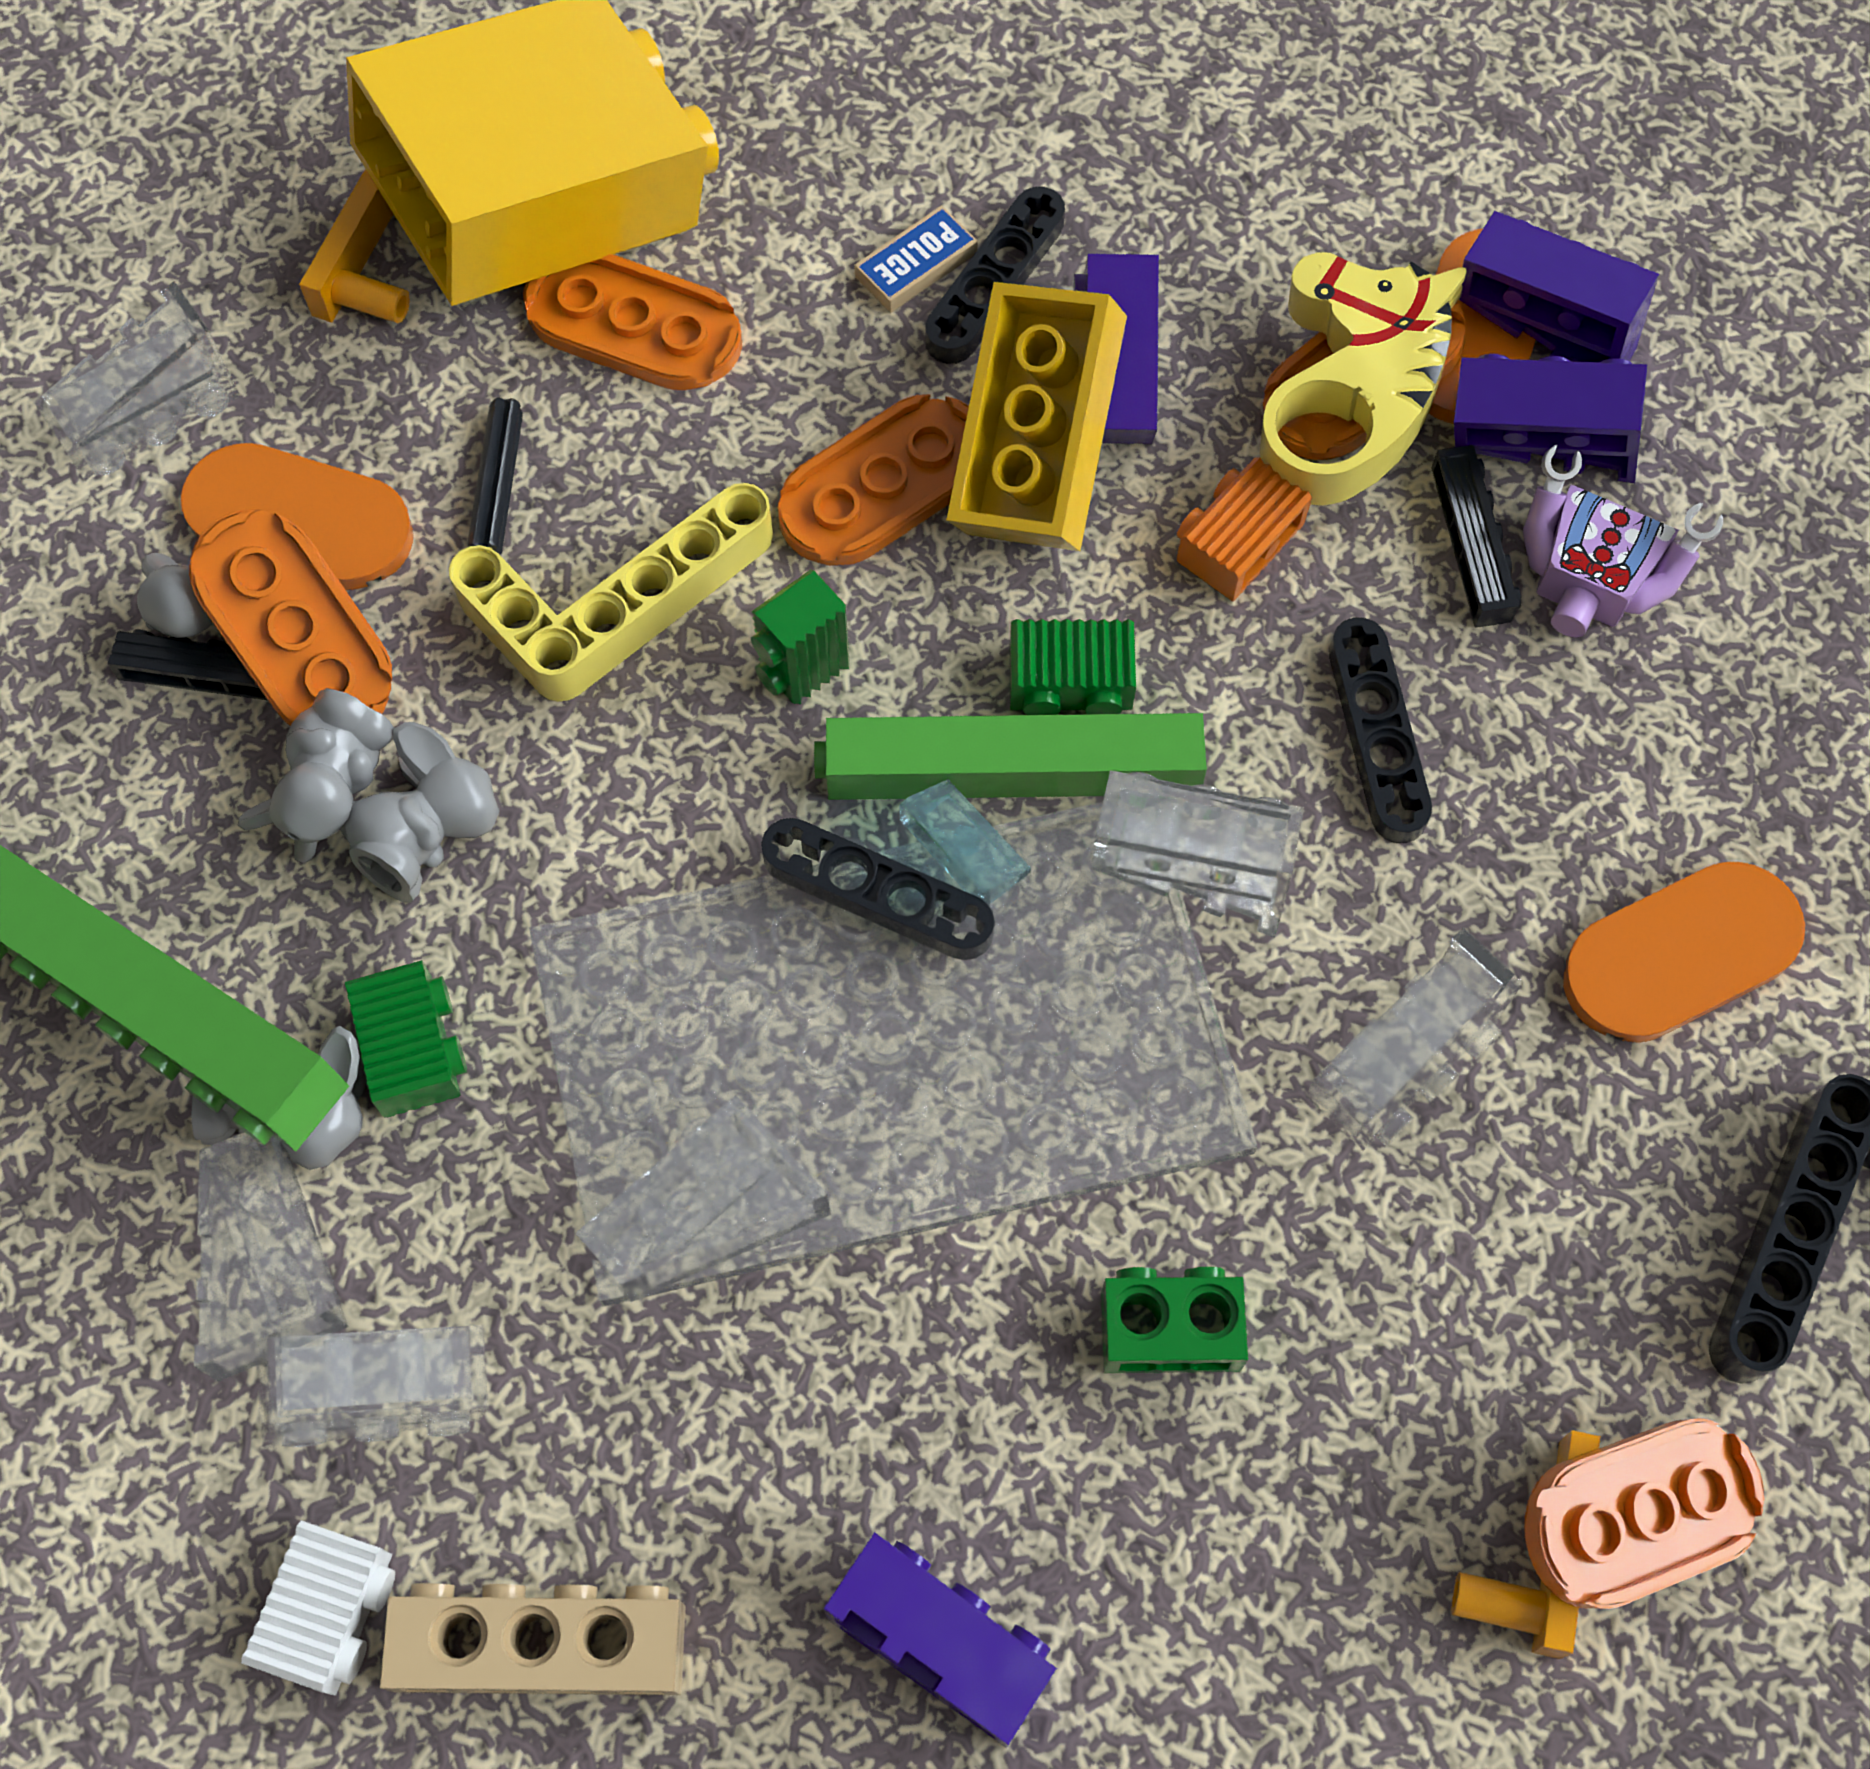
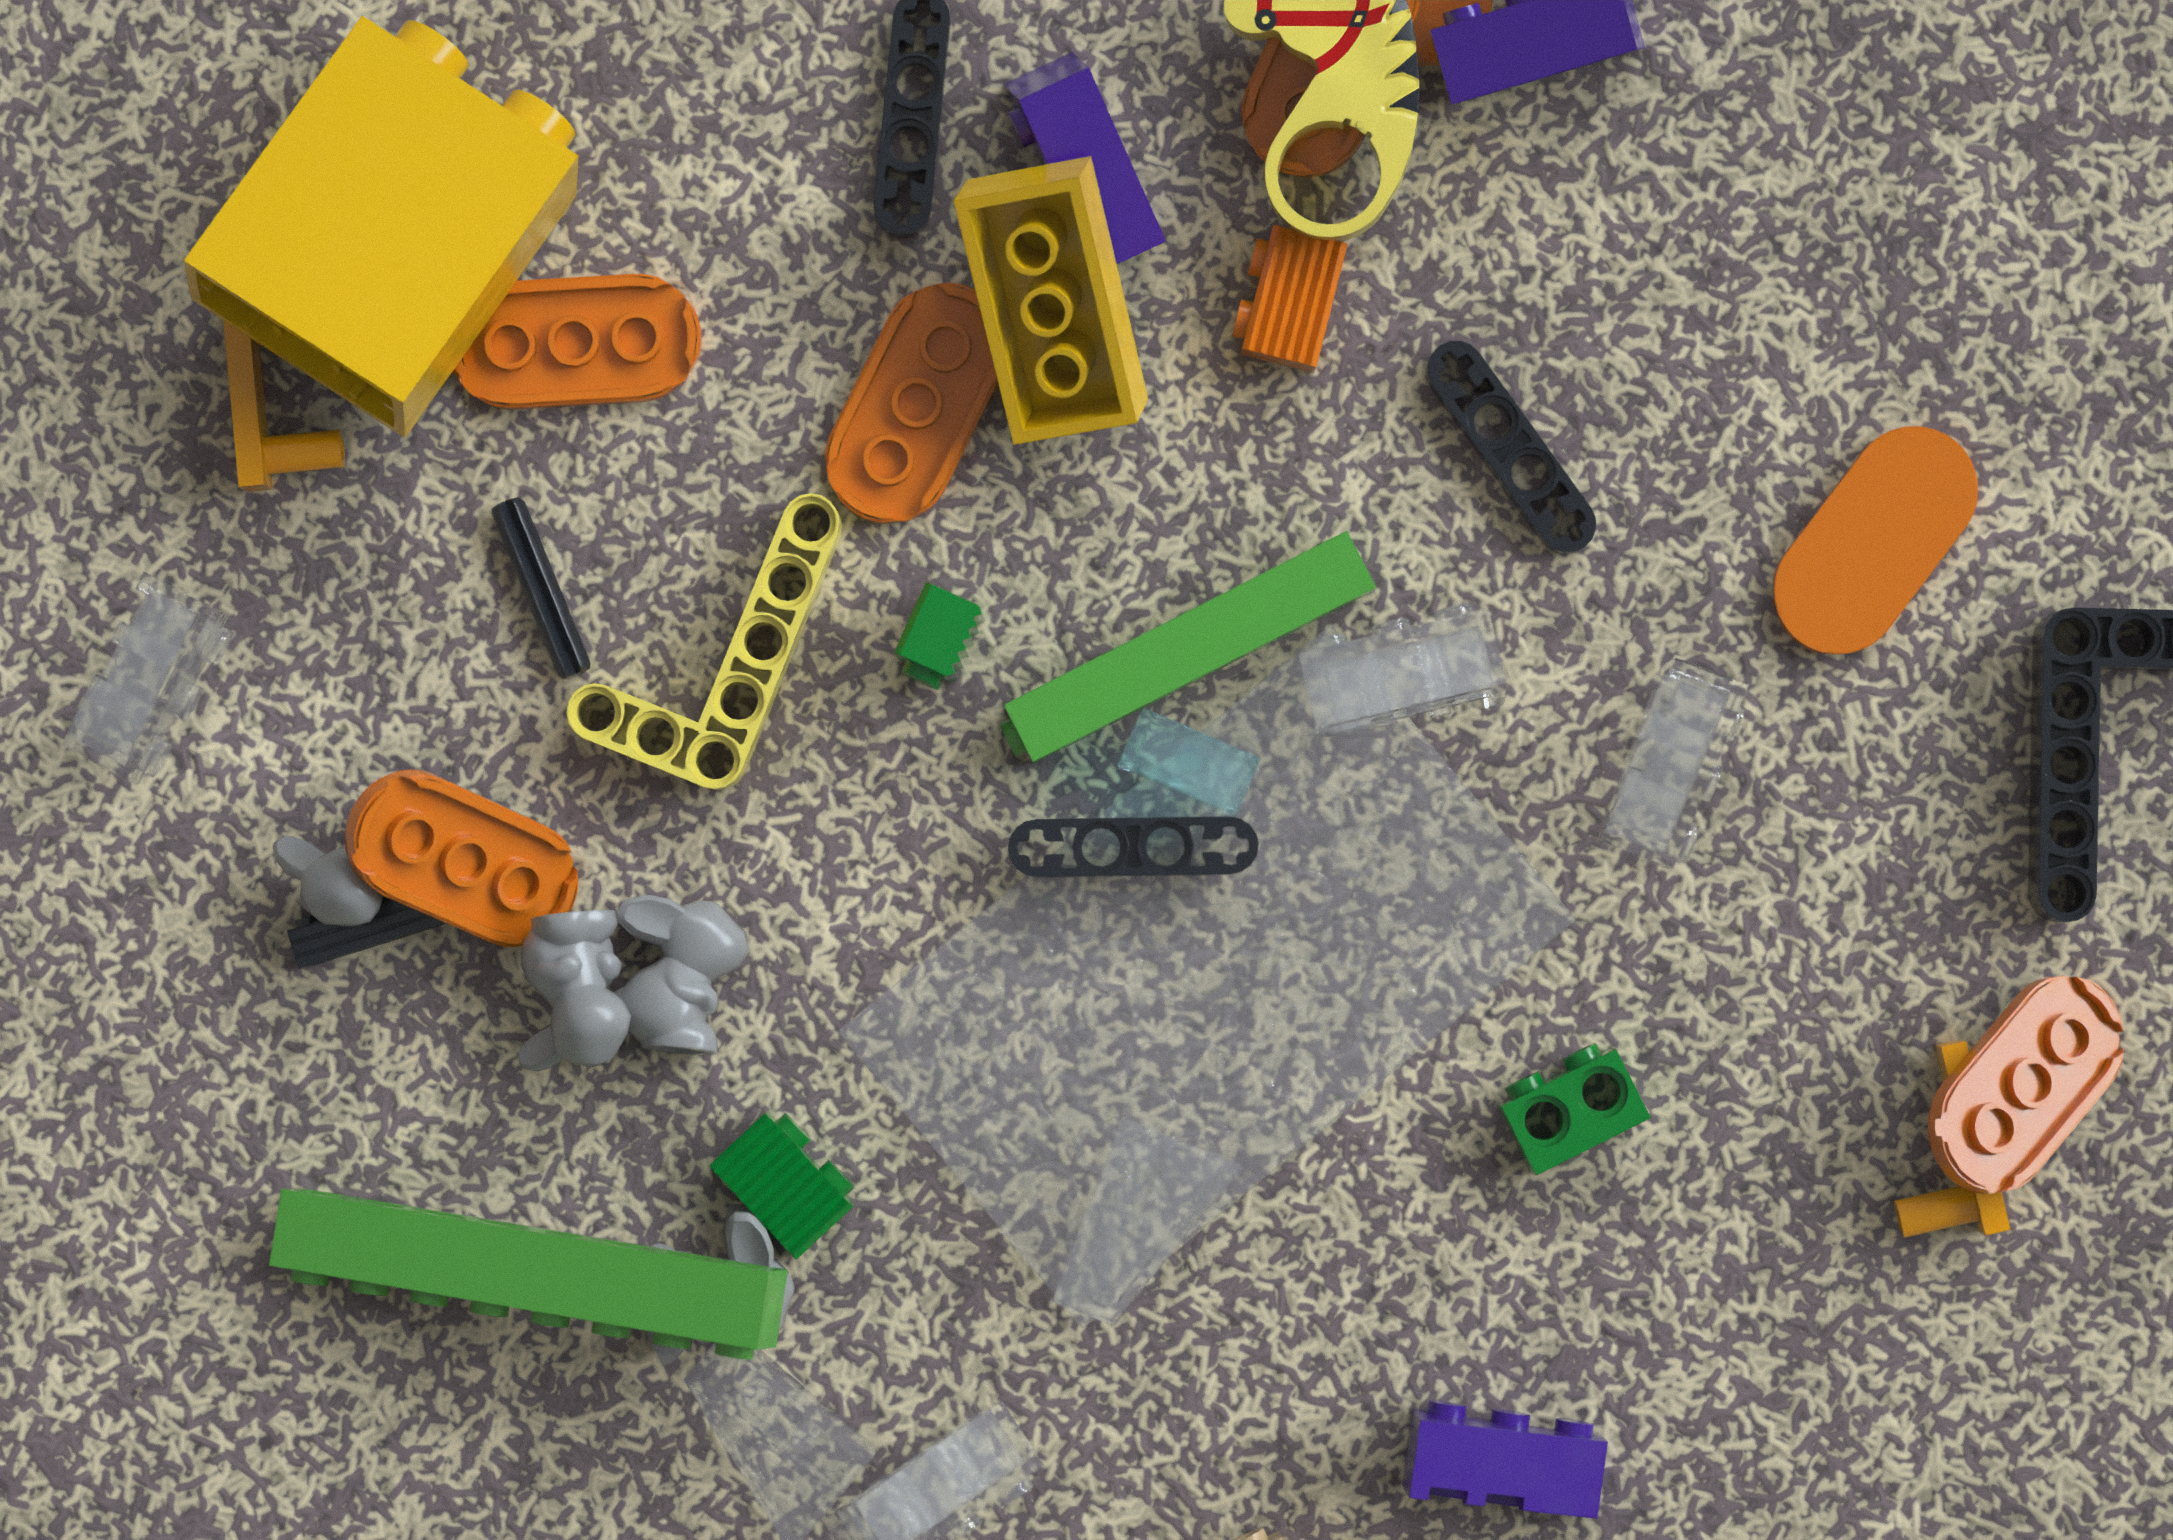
camera: 25 degrees left, 20 degrees up
(349, 517) = (369, 718): orange tile -> none
(916, 259) = (822, 132): tile -> none
(1072, 666) = (1198, 529): green brick -> none
(1475, 536) = (1516, 192): black piece -> none
(1601, 555) = (1647, 164): lavender torso -> none

